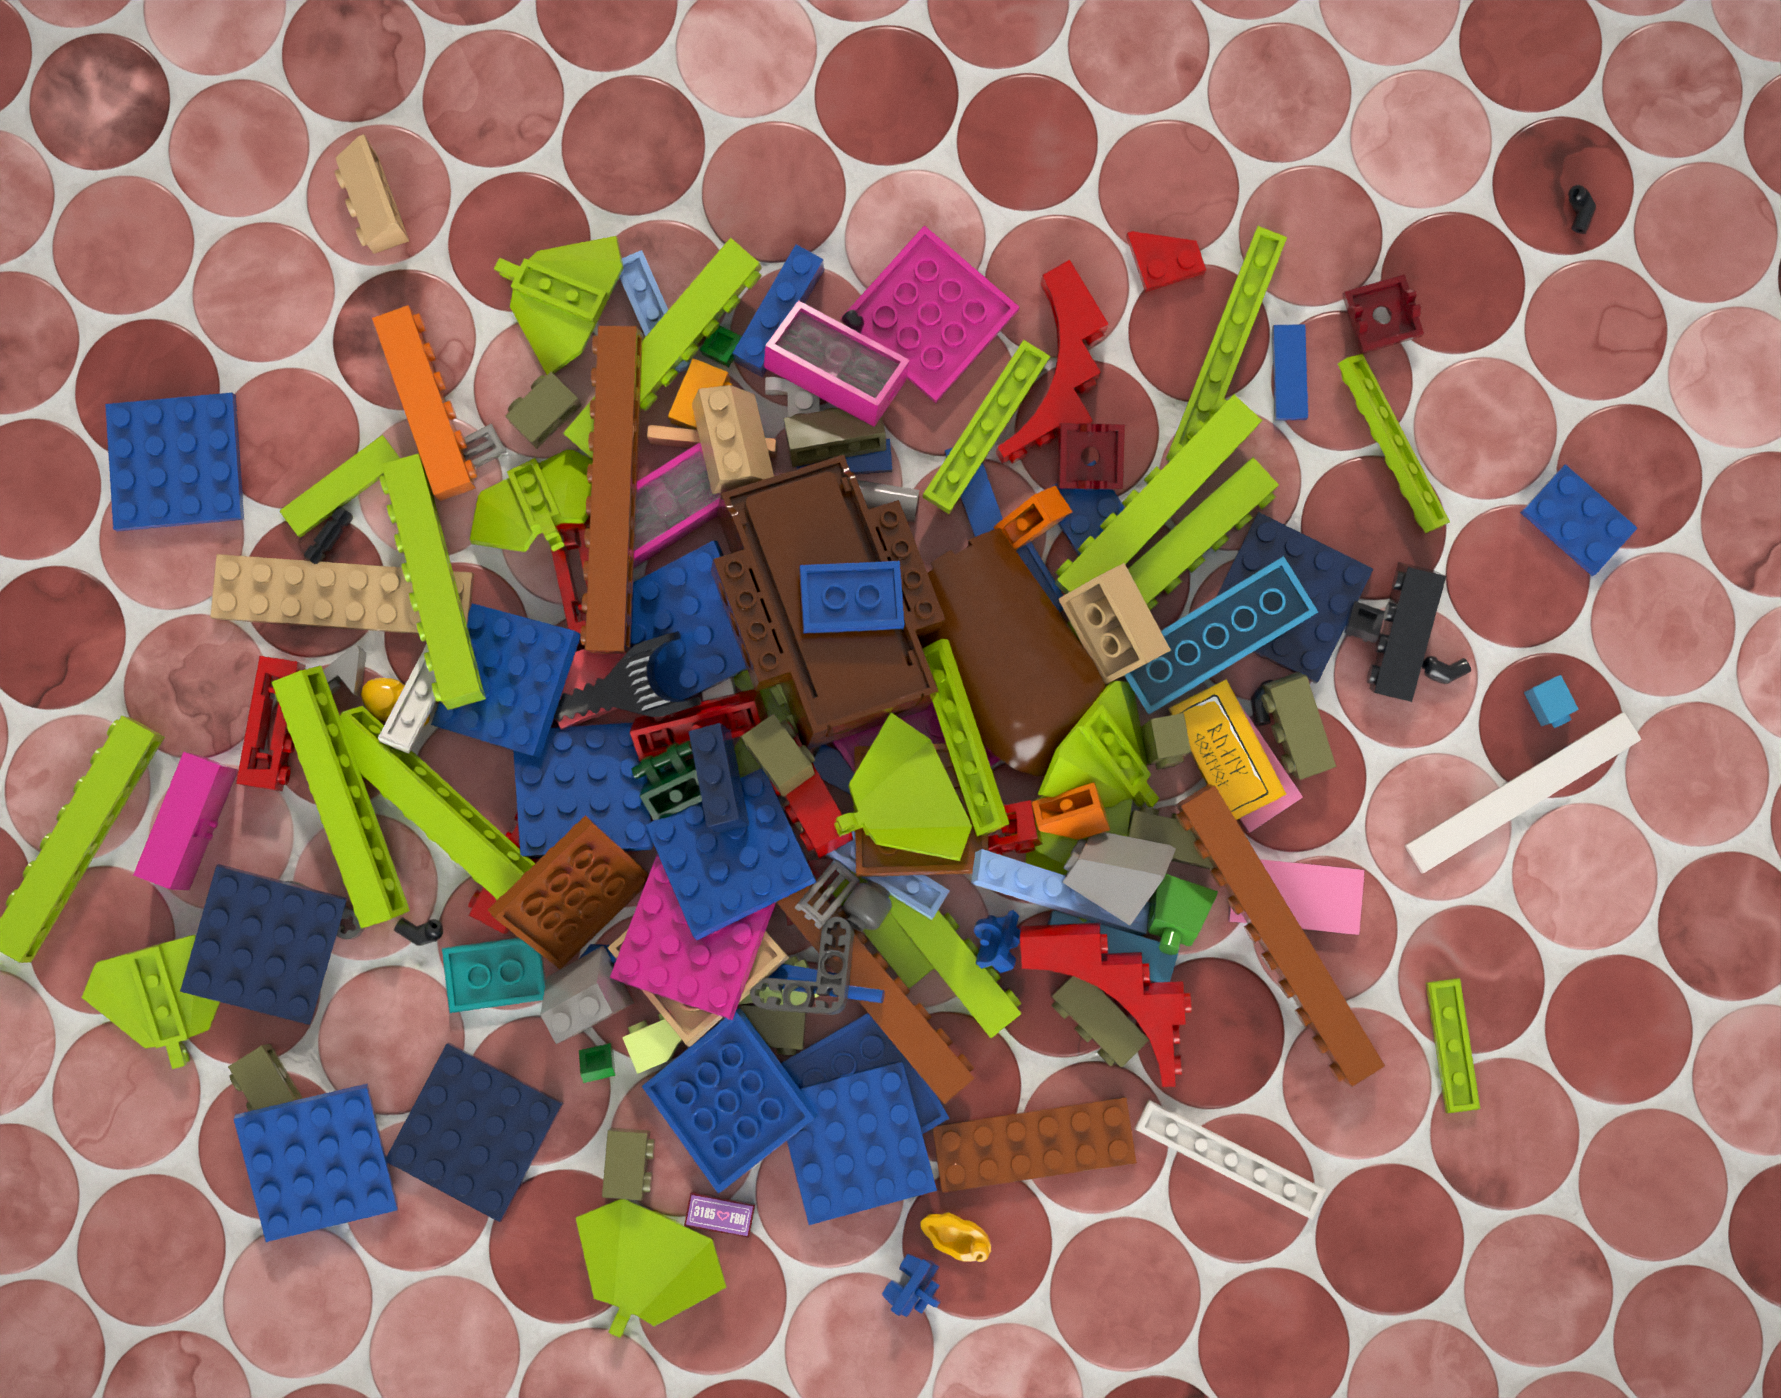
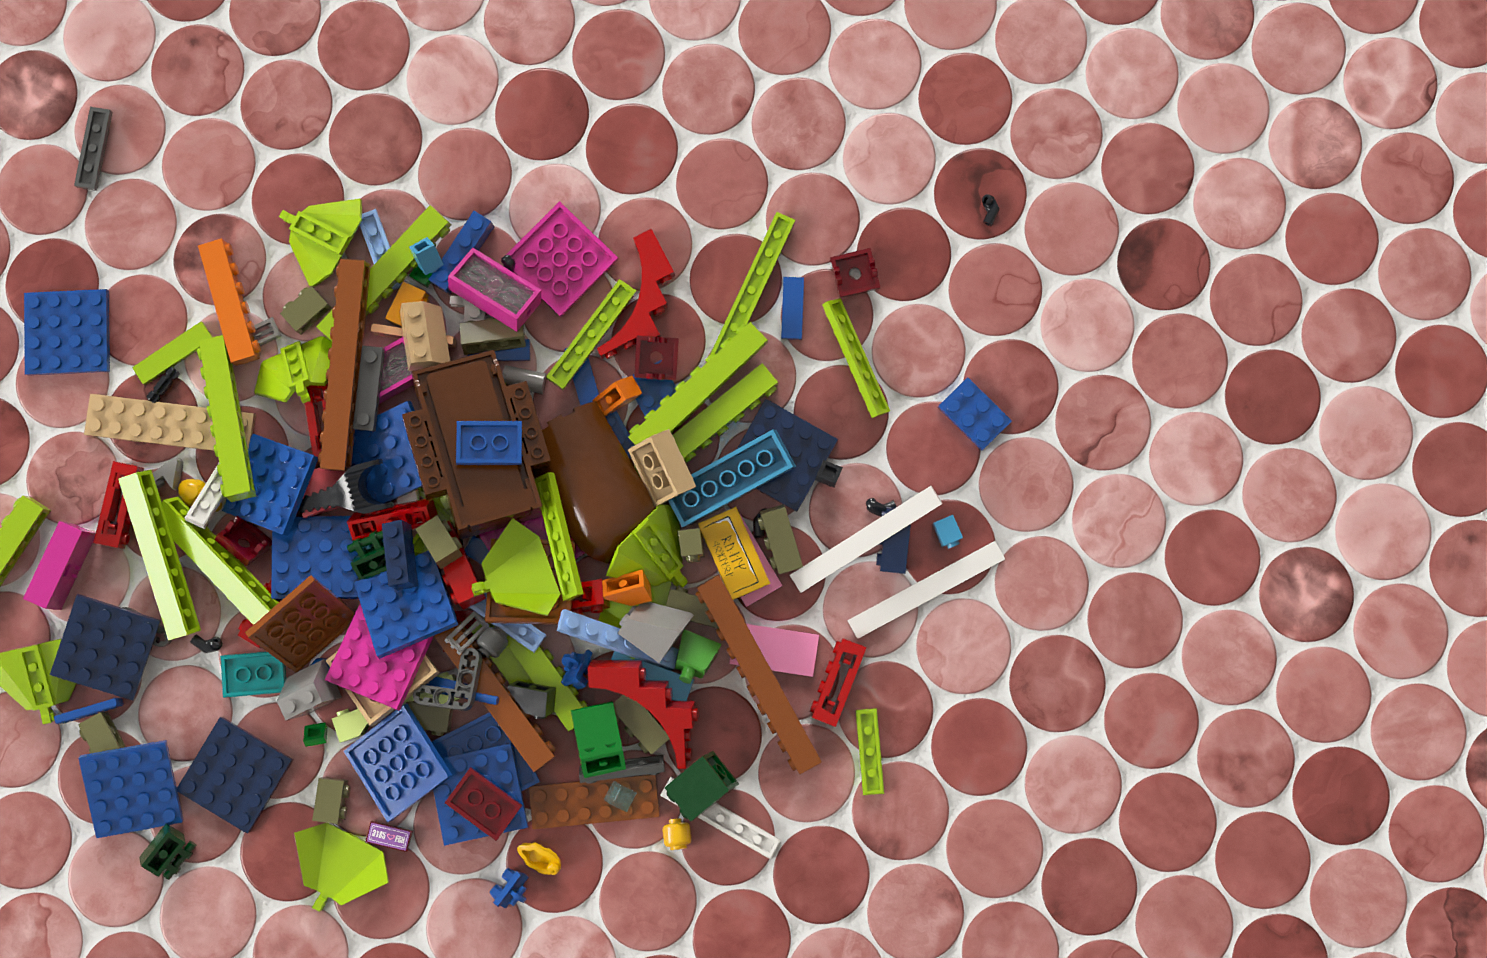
camera: 10 degrees right, 0 degrees up
(200, 178) = (93, 148): none -> dark grey plate
(242, 1044) = (88, 711): none -> blue tile
(370, 197) = (202, 166): tan slope -> none
(372, 1254) = (163, 849): none -> dark green brick
(465, 753) = (244, 530): none -> dark red piece
(651, 524) = (368, 388): none -> dark grey plate
(730, 316) = (426, 256): none -> dark azure brick
(869, 1158) = (483, 804): none -> dark red plate
(936, 989) = (534, 698): none -> black slope
(1038, 1049) = (598, 739): none -> green slope
(1075, 1091) = (636, 766): none -> dark grey plate
(1075, 1134) = (620, 796): none -> clear light blue slope
(1164, 259) = (715, 230): red wing -> none
(1166, 1189) = (676, 834): none -> yellow head
(1201, 1113) = (701, 786): none -> dark green slope
(1382, 948) = (825, 687): none -> red brick
(1405, 631) = (855, 481): black wedge -> none
(1432, 718) = (866, 539): none -> white tile
(1473, 718) = (894, 550): none -> dark blue brick

